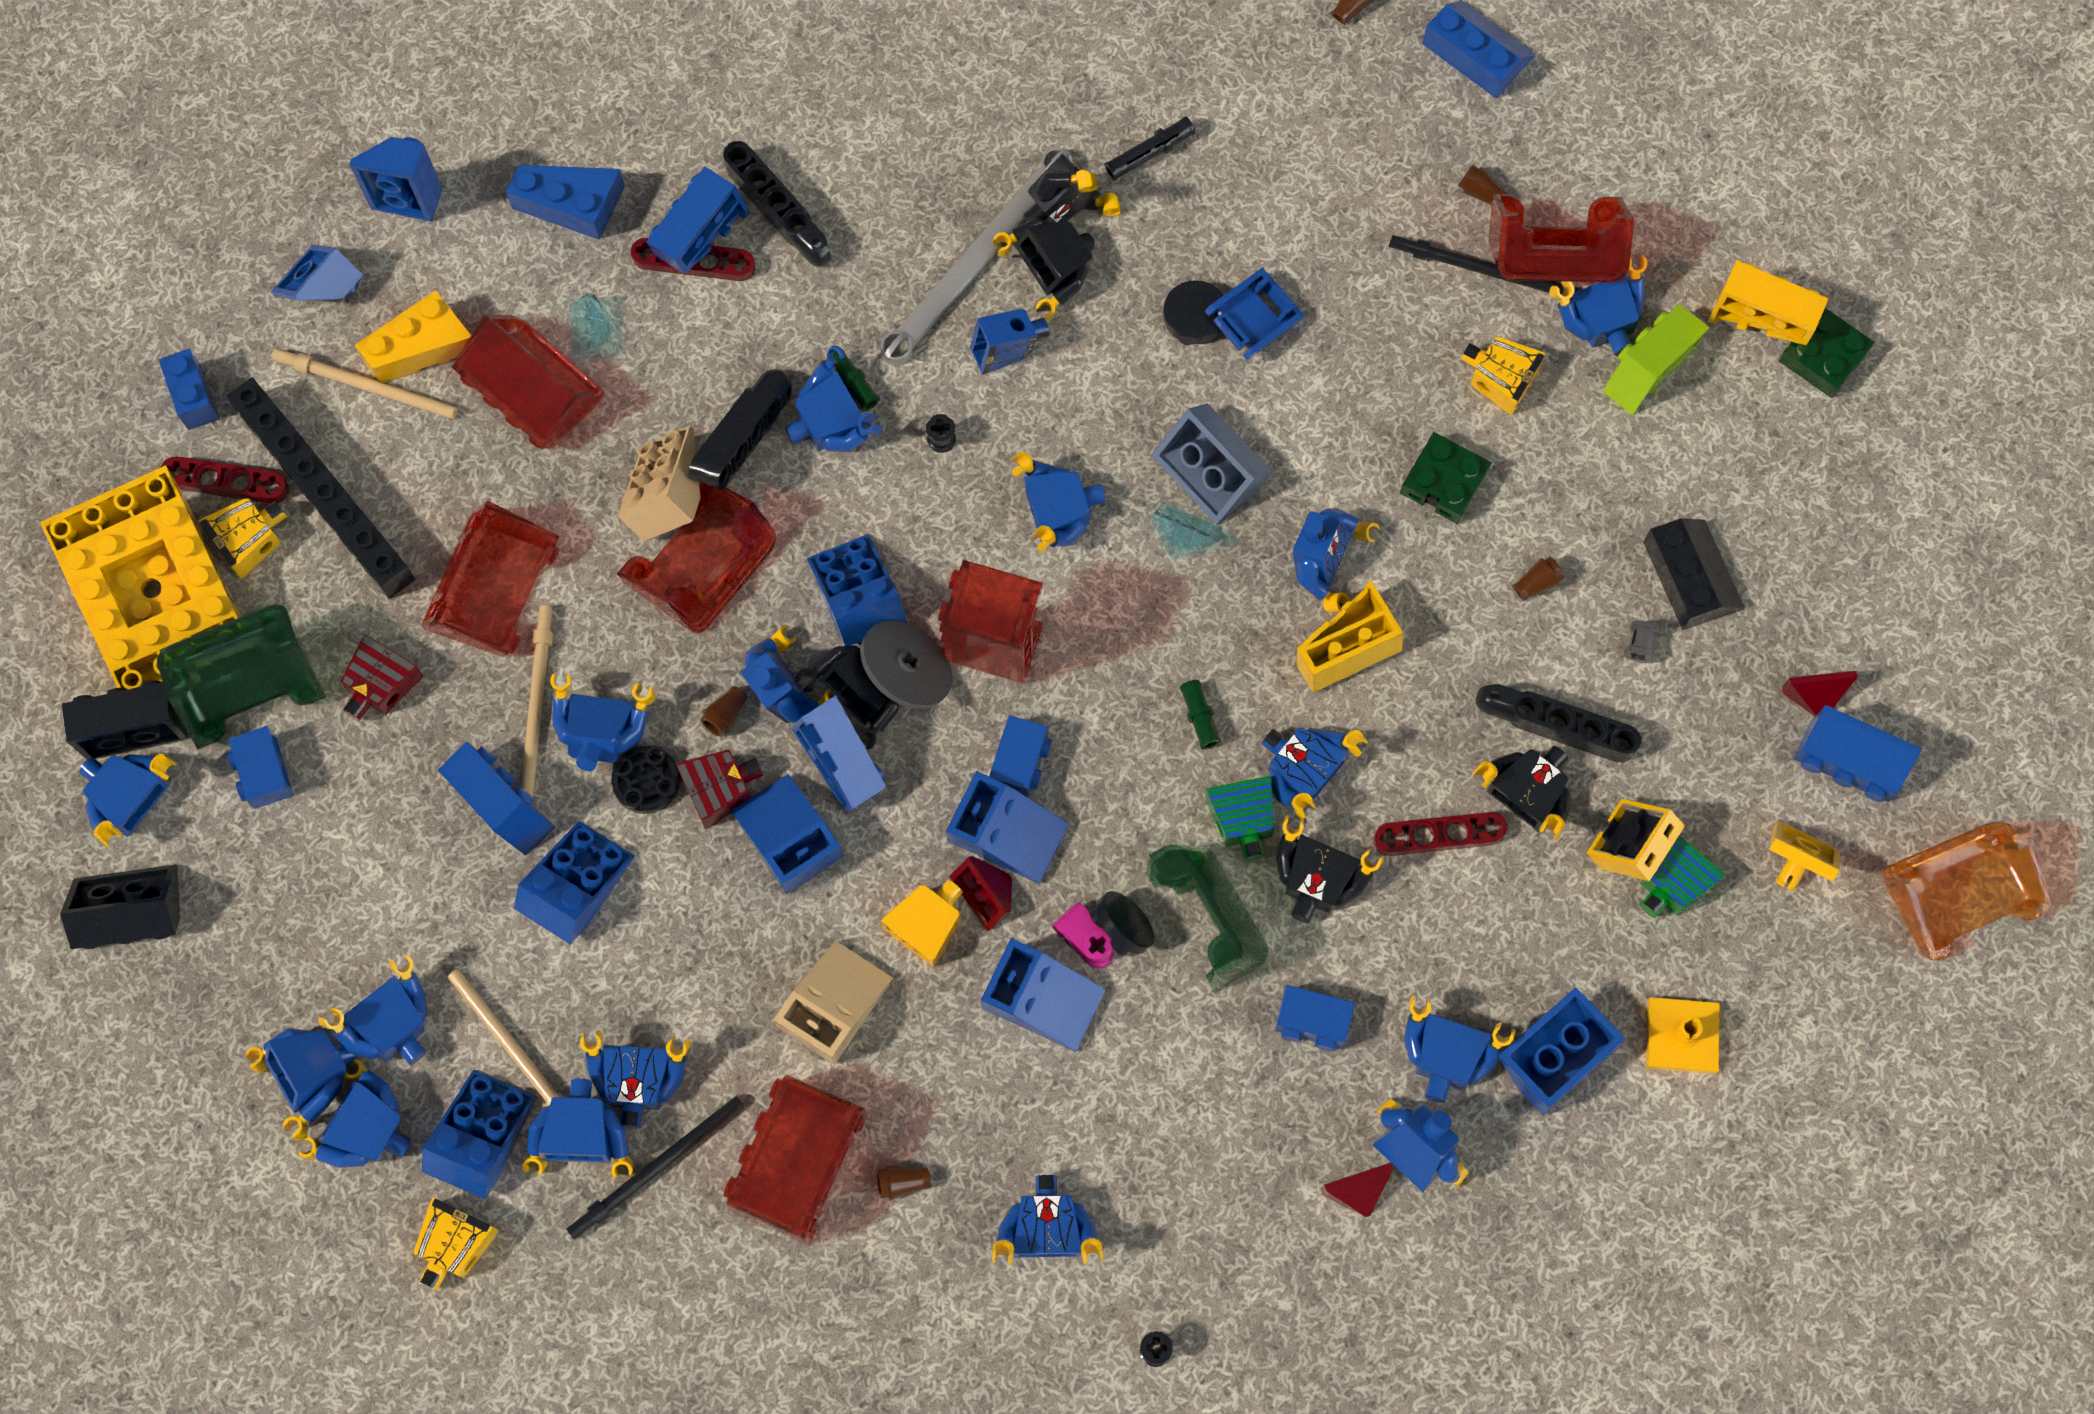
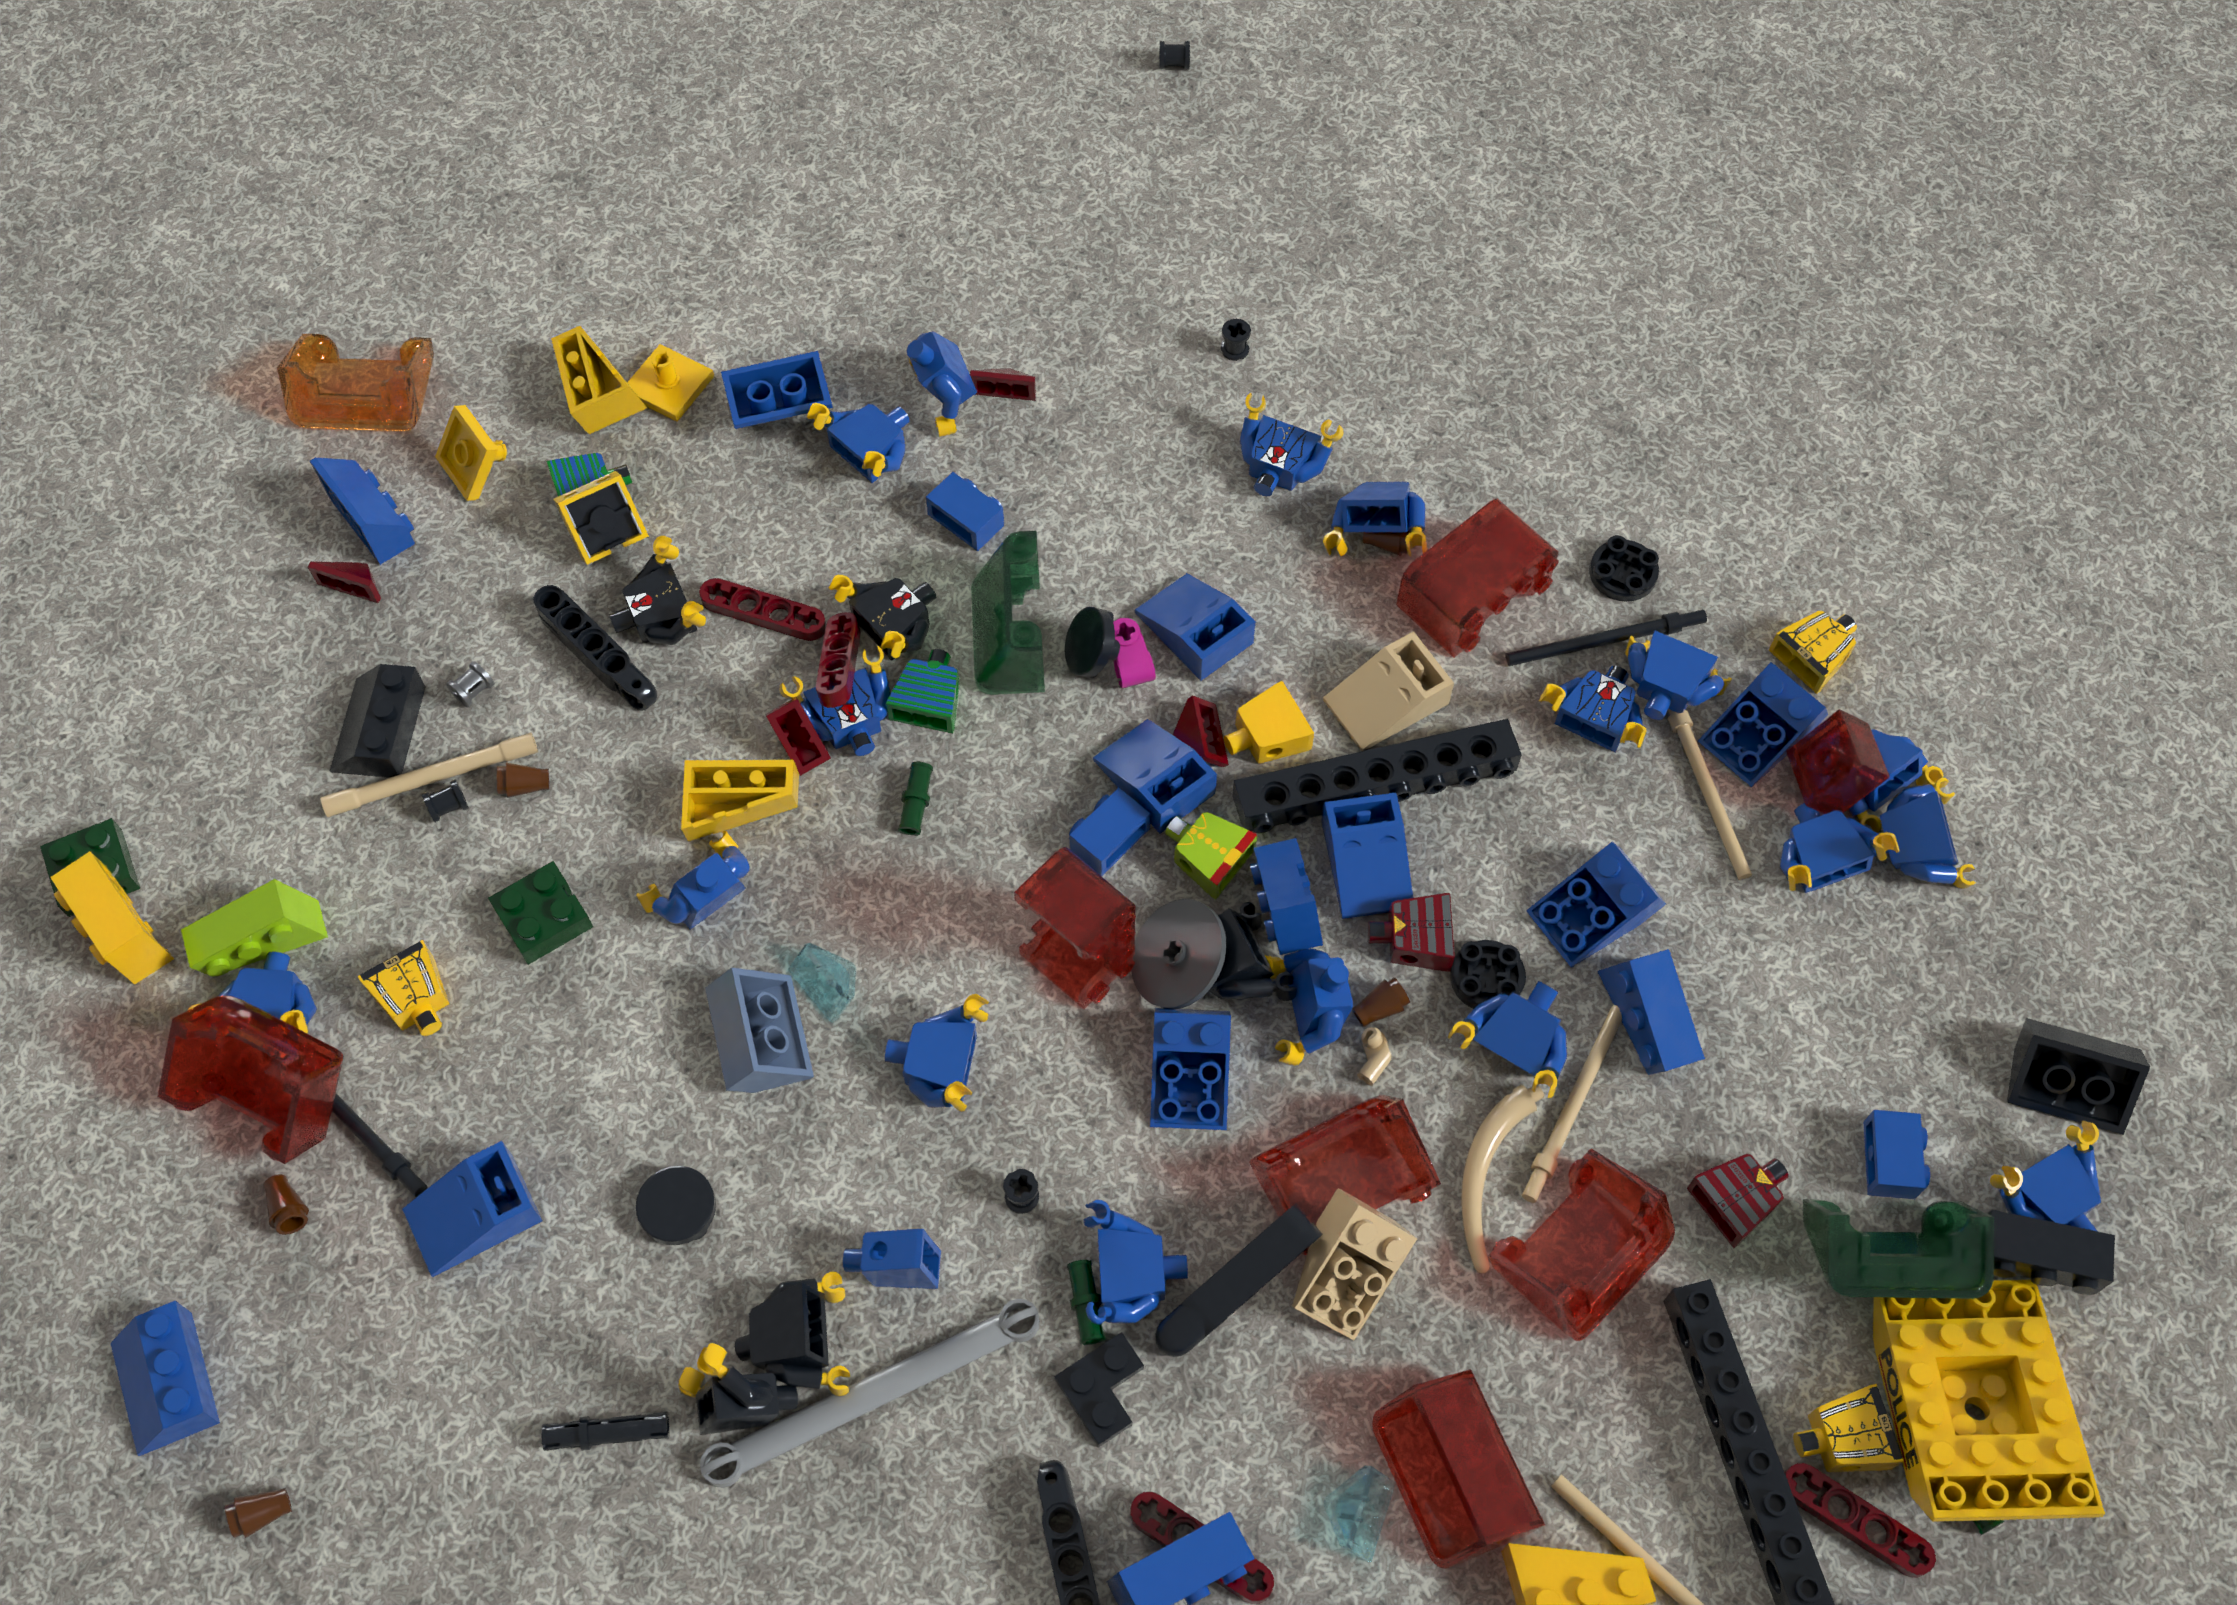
camera: 155 degrees left, 10 degrees down
(396, 1096) = (1837, 763): none -> clear red container
(593, 647) = (1492, 1131): none -> tan animal
(664, 1255) = (1624, 569): none -> black tile
(710, 669) = (1377, 1055): none -> tan arm
(777, 955) = (1457, 747): none -> black brick
(820, 327) = (1090, 1386): none -> black plate
(918, 1193) = (1378, 509): none -> blue torso
(924, 778) = (1211, 850): none -> lime torso
(1248, 319) = (627, 1167): blue container -> none
(1329, 714) = (798, 736): none -> dark red slope
(1339, 241) = (471, 1209): none -> blue slope
(1340, 796) = (842, 658): none -> dark red beam
(1588, 532) = (445, 800): none -> black bush
(1664, 504) = (355, 797): none -> tan piece
(1747, 986) = (591, 383): none -> yellow wedge

